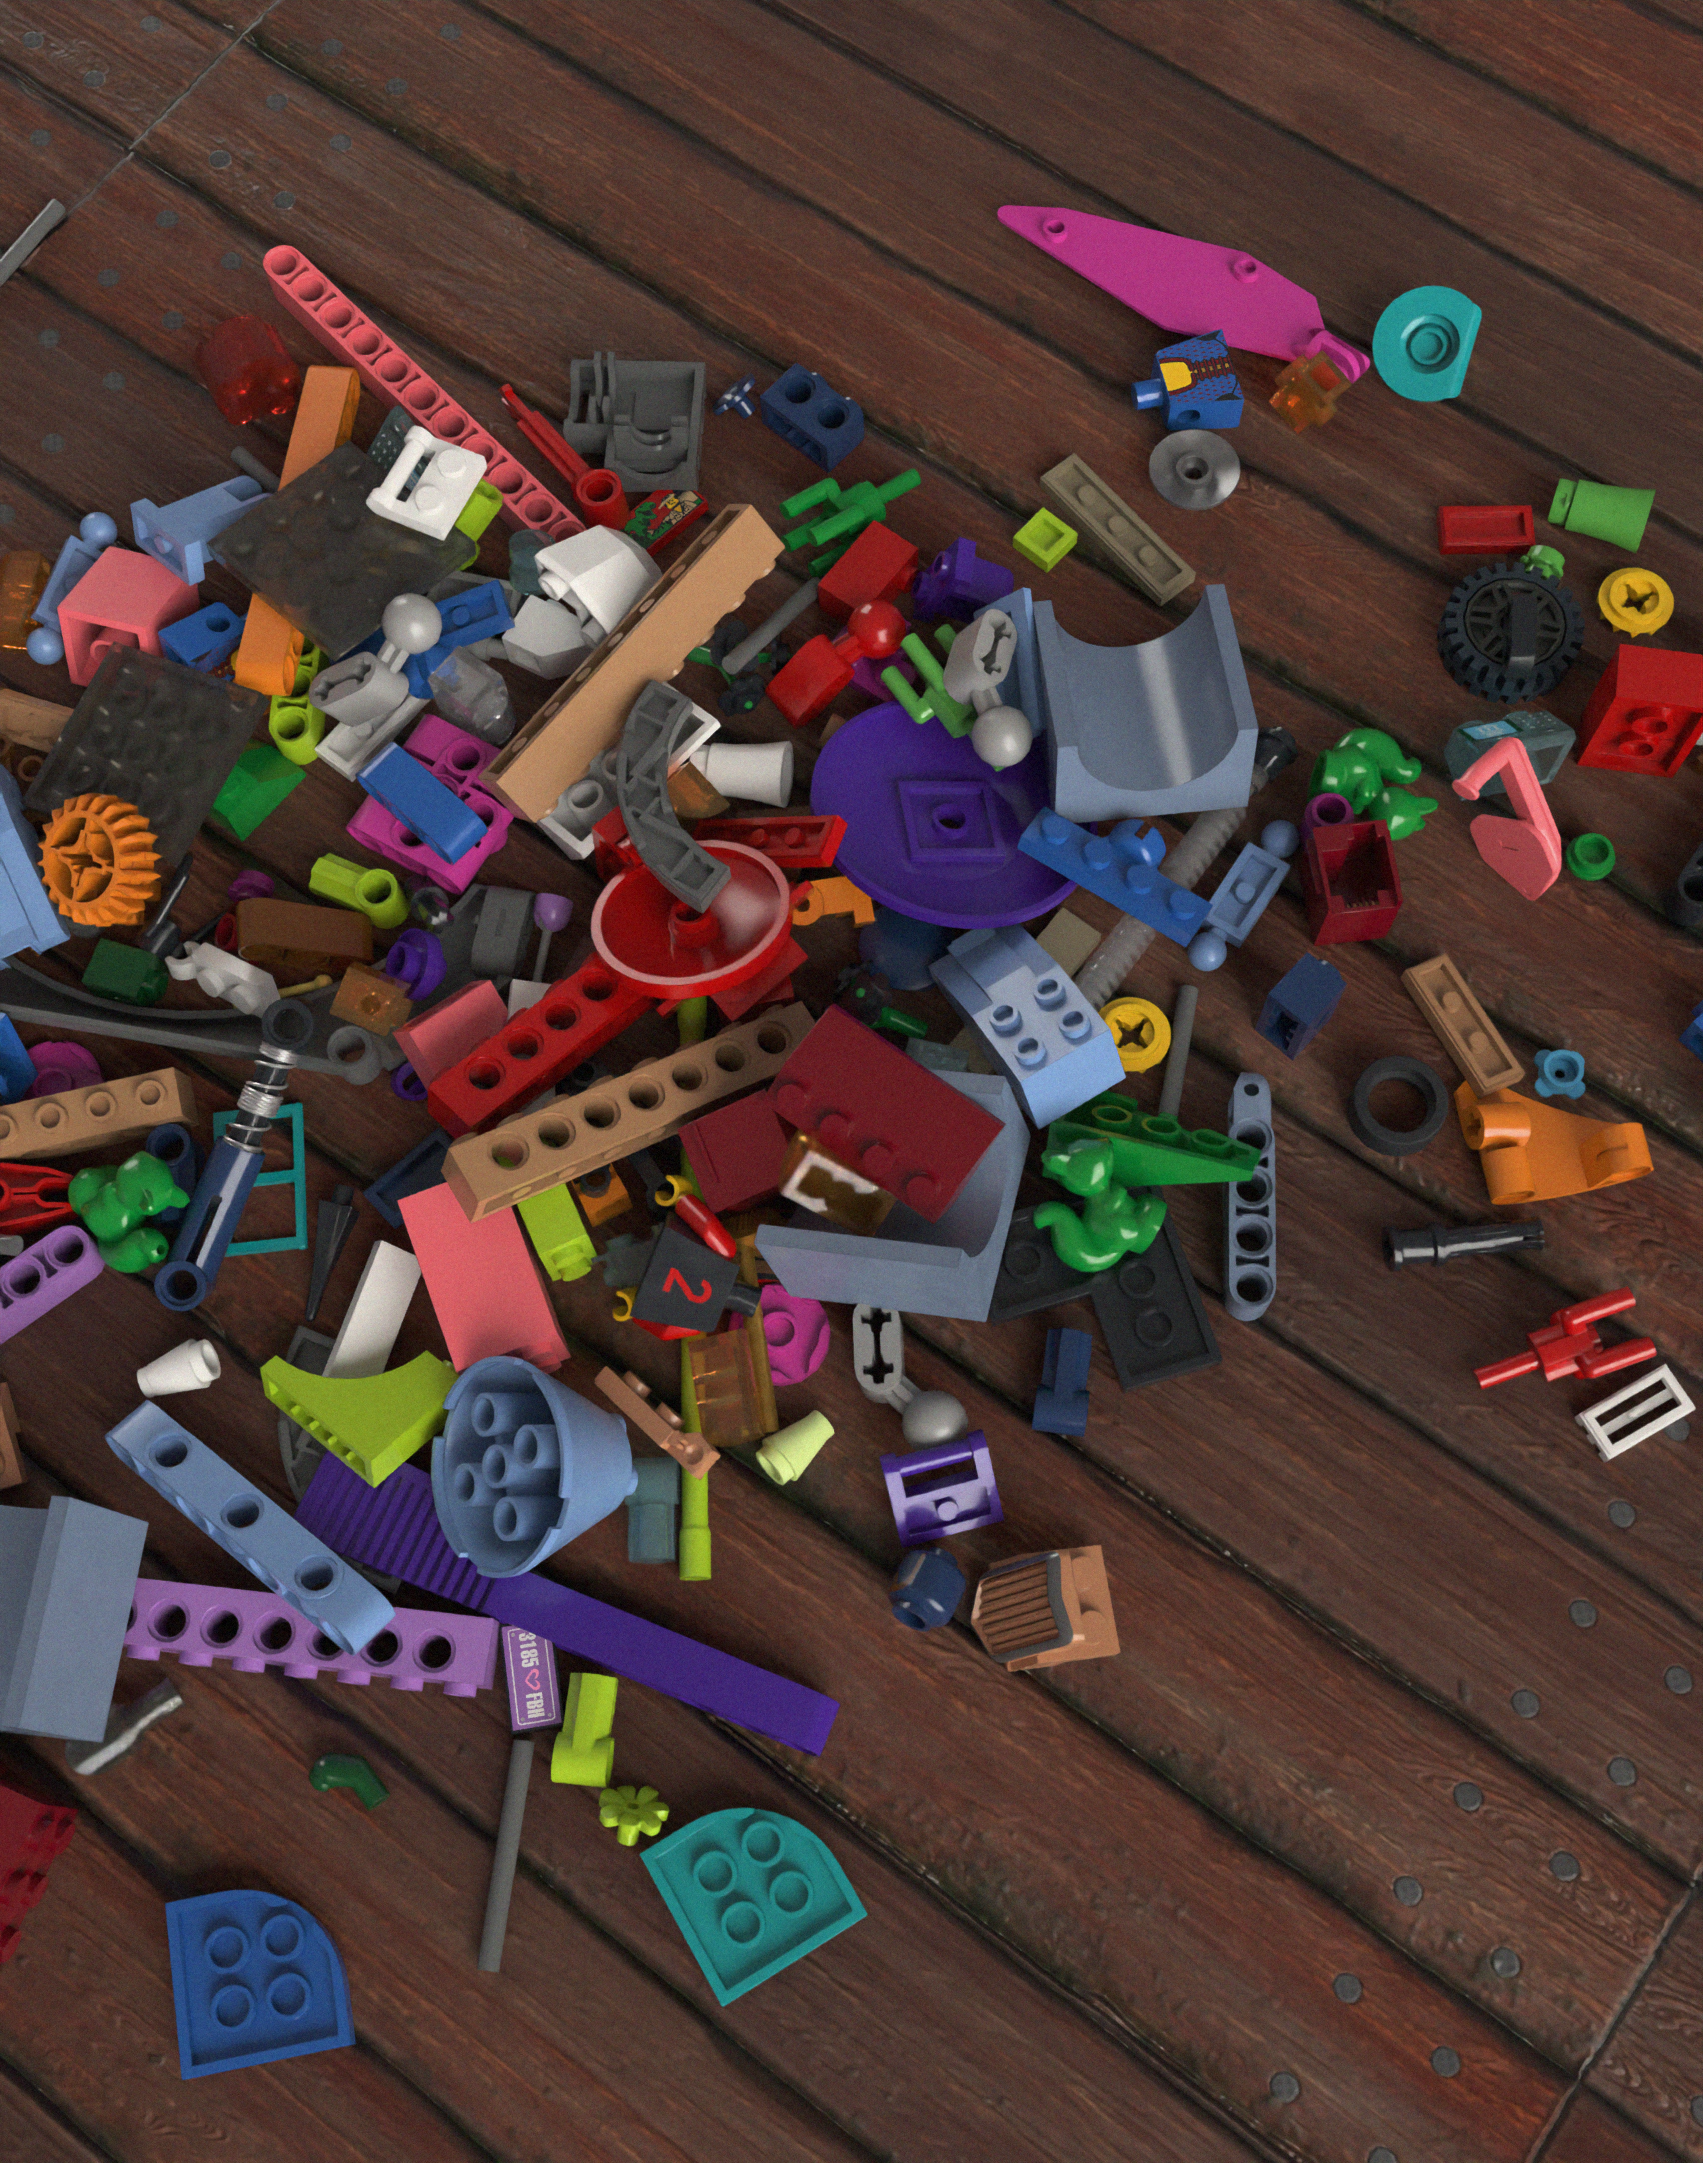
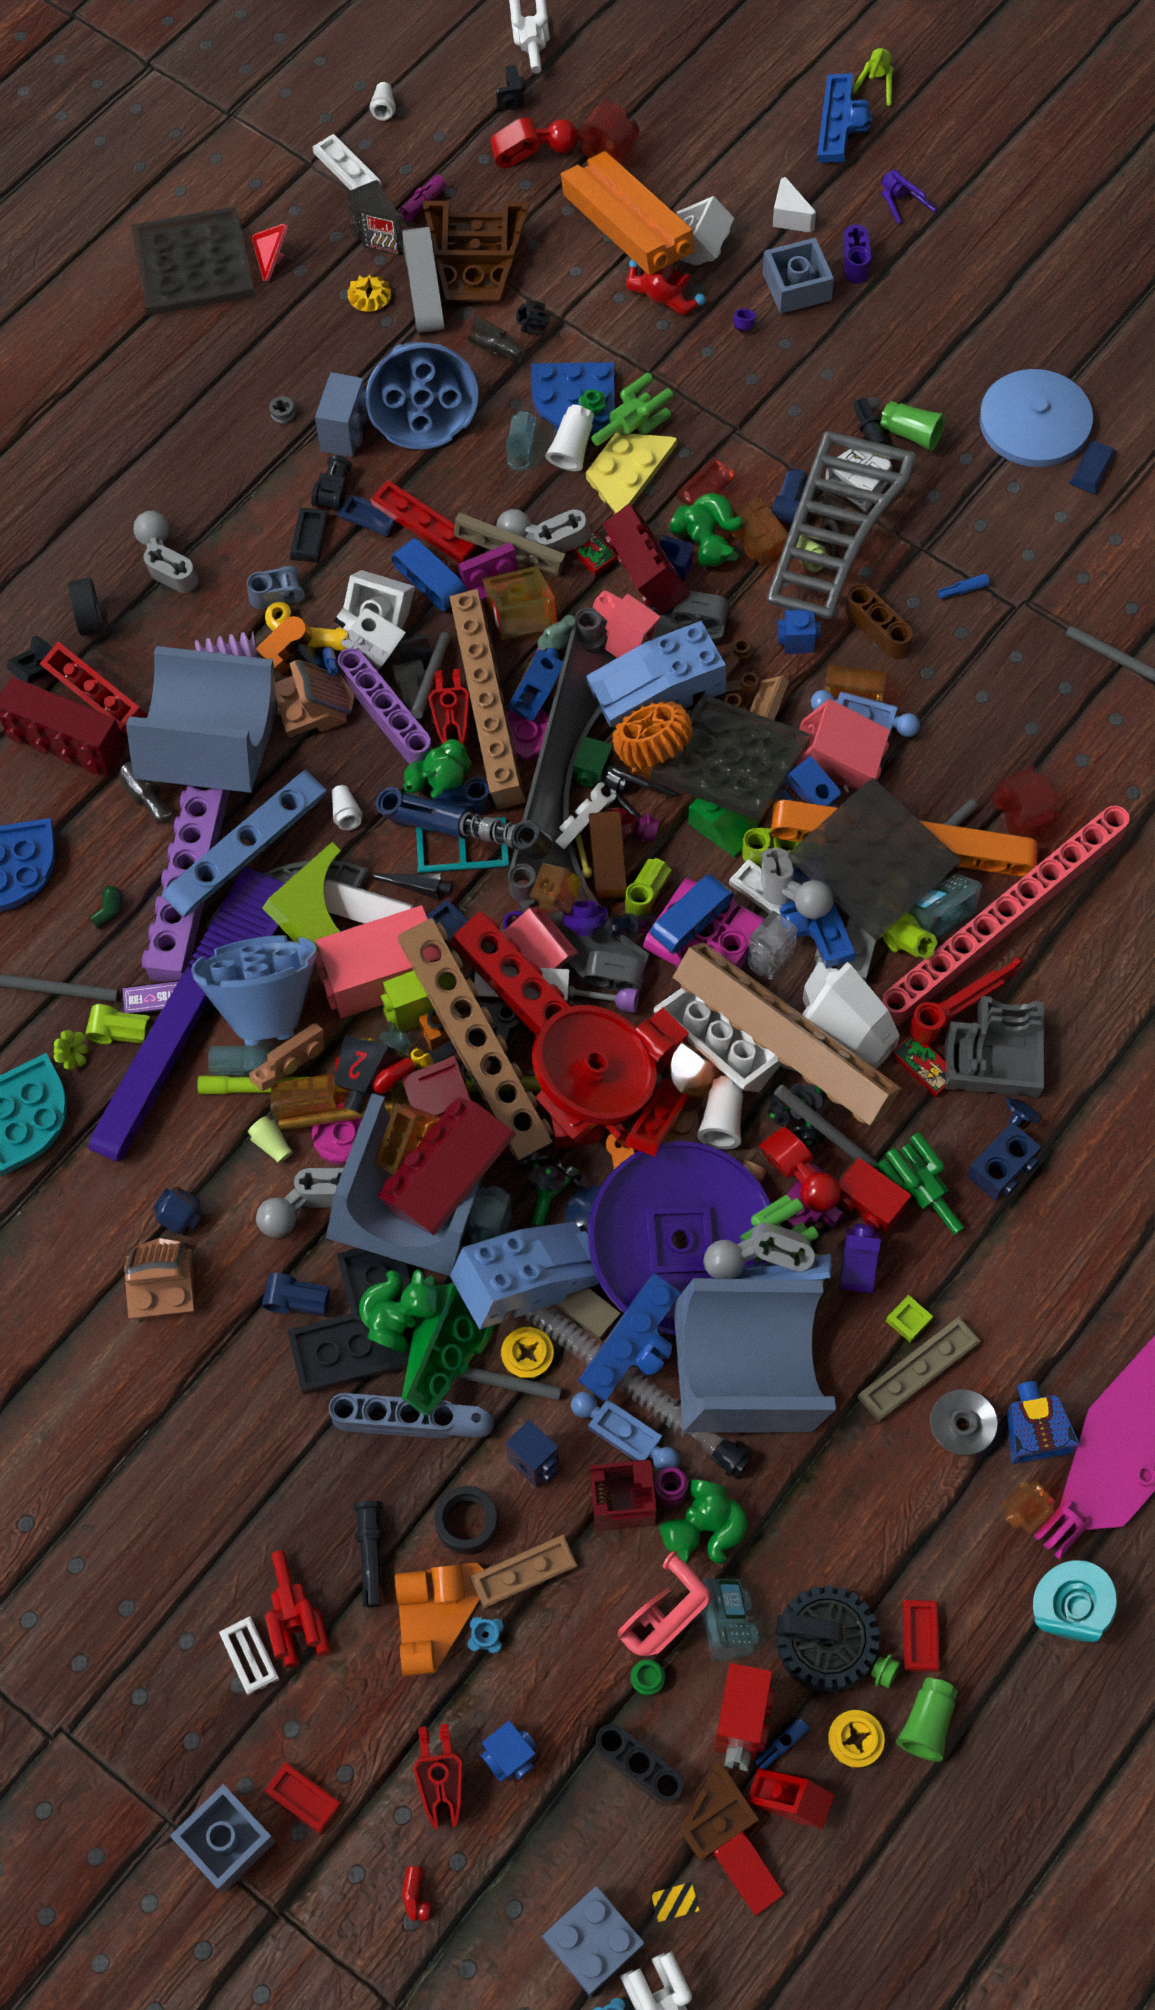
camera: 90 degrees right, 5 degrees down
(179, 531) = (905, 782): medium blue piece -> none
(440, 490) = (912, 911): white plate -> none
(523, 569) = (879, 976): clear light blue wheel -> none
(646, 804) = (676, 1034): dark grey tile -> none
(946, 1503) = (227, 1222): dark purple plate -> none

